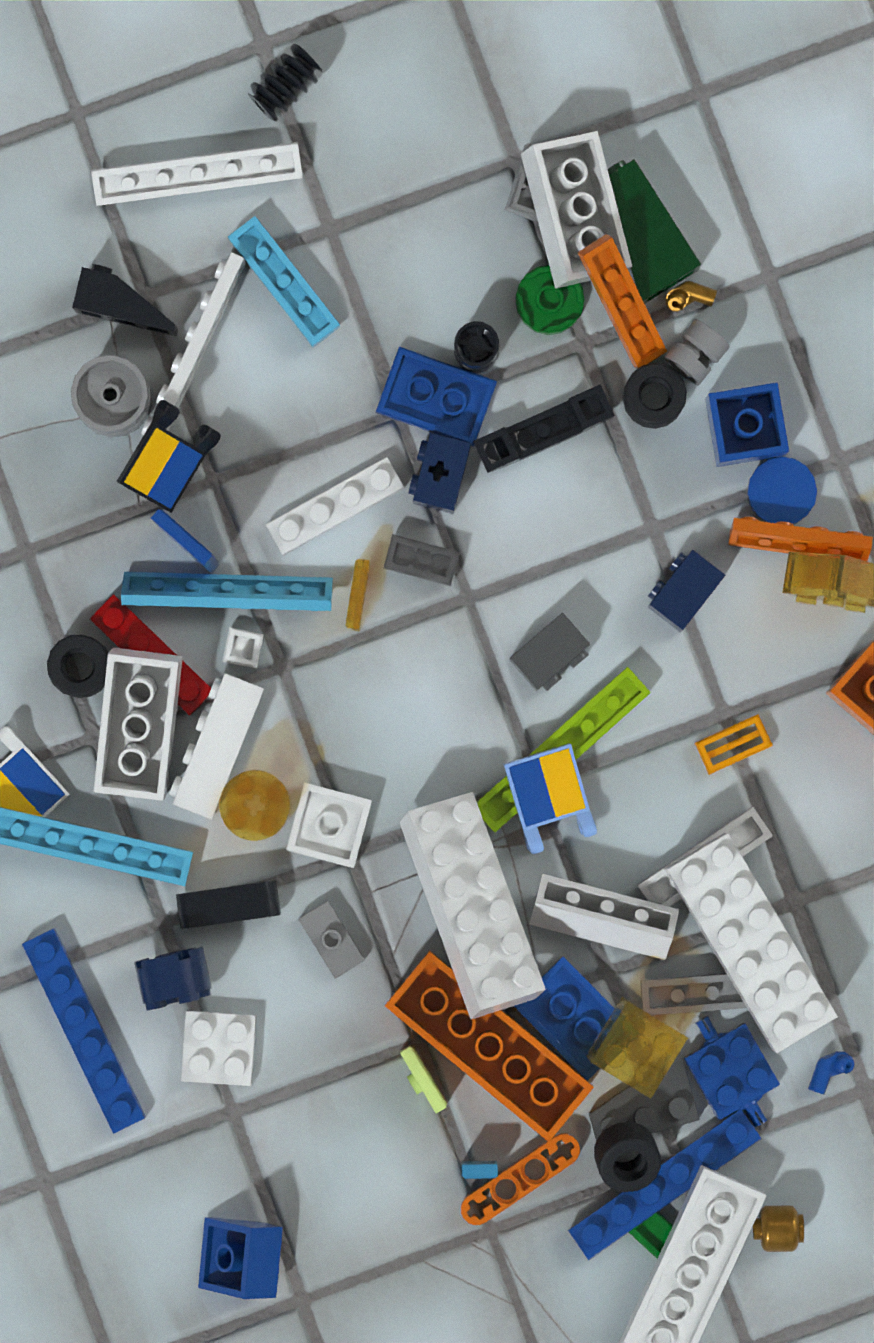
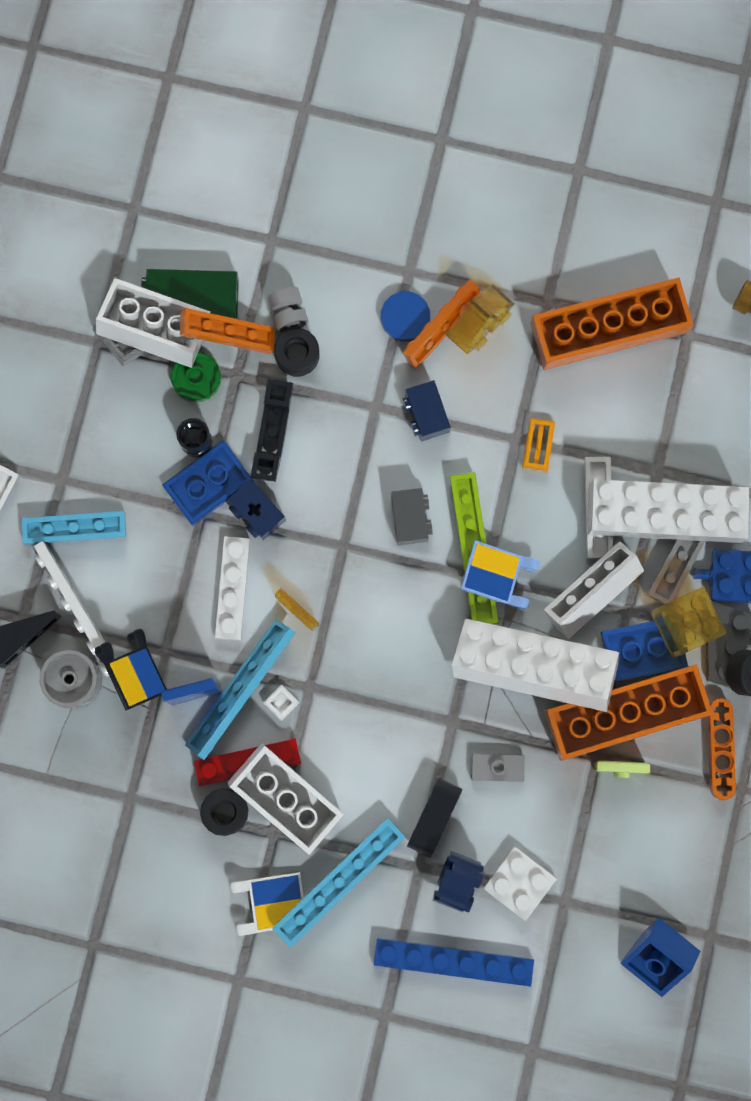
camera: 60 degrees left, 5 degrees down
(217, 746) = (332, 758): white brick -> none
(237, 814) = (399, 759): clear yellow brick -> none
(329, 825) = (426, 721): white plate -> none
(421, 560) = (301, 557): flat silver plate -> none
(479, 1169) = (700, 769): dark azure tile -> none
(688, 293) = (248, 293): pearl gold arm -> none
(747, 424) = (351, 308): blue brick -> none

